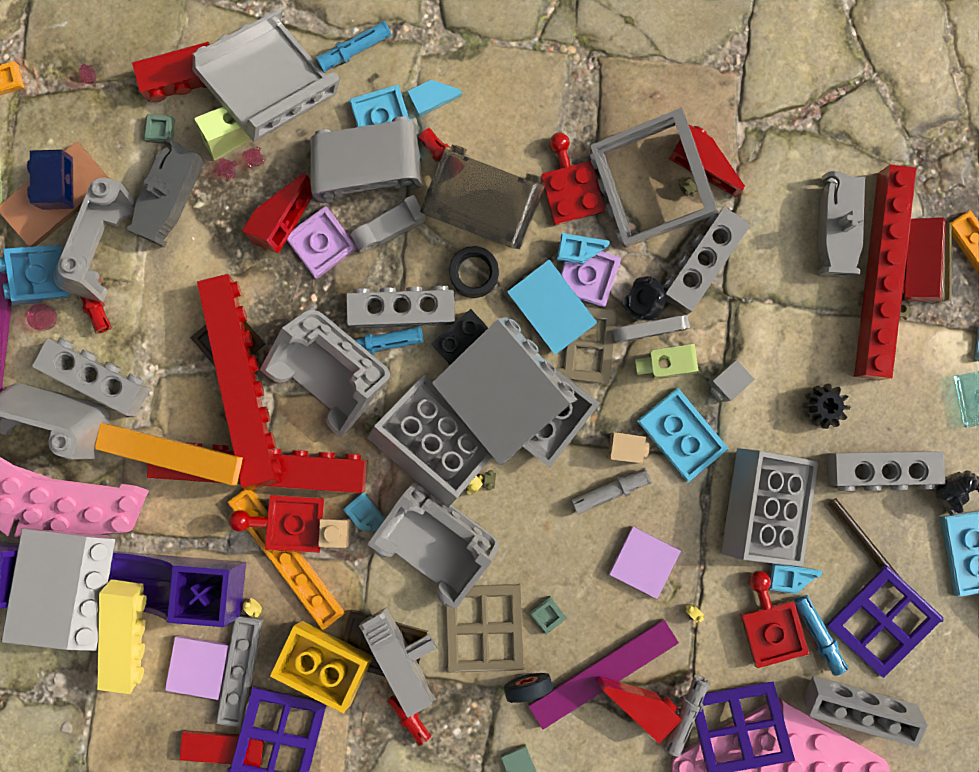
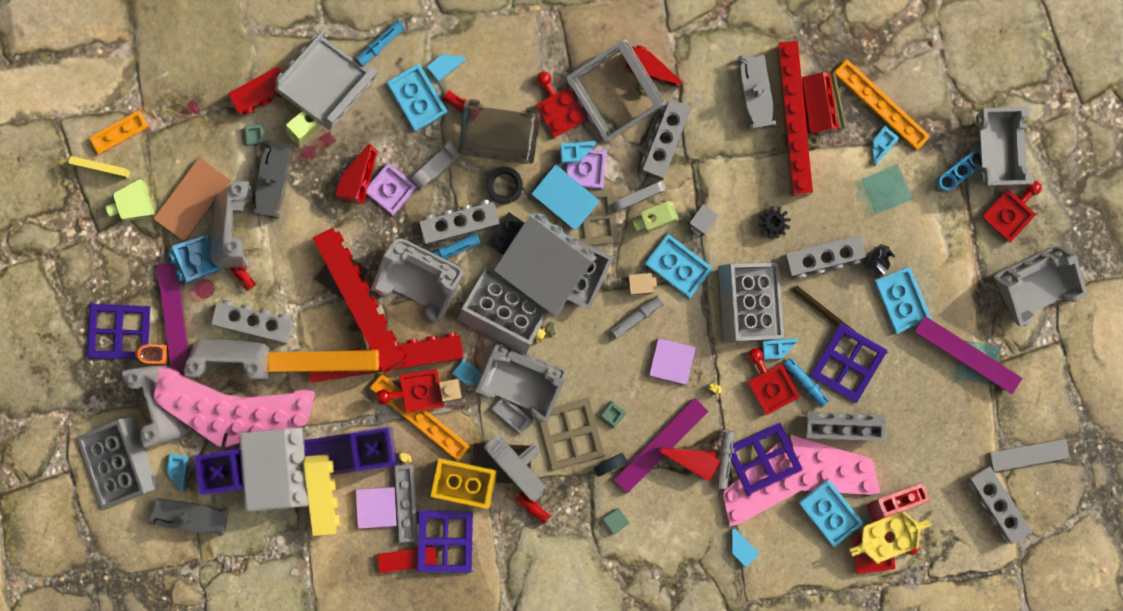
camera: 15 degrees left, 0 degrees up
(50, 179) = (190, 190): clear blue brick -> none
(364, 159) = (409, 123): light grey windscreen -> none
(411, 584) = (512, 415): none -> light grey tile
(645, 299) = (630, 176): black hair -> none

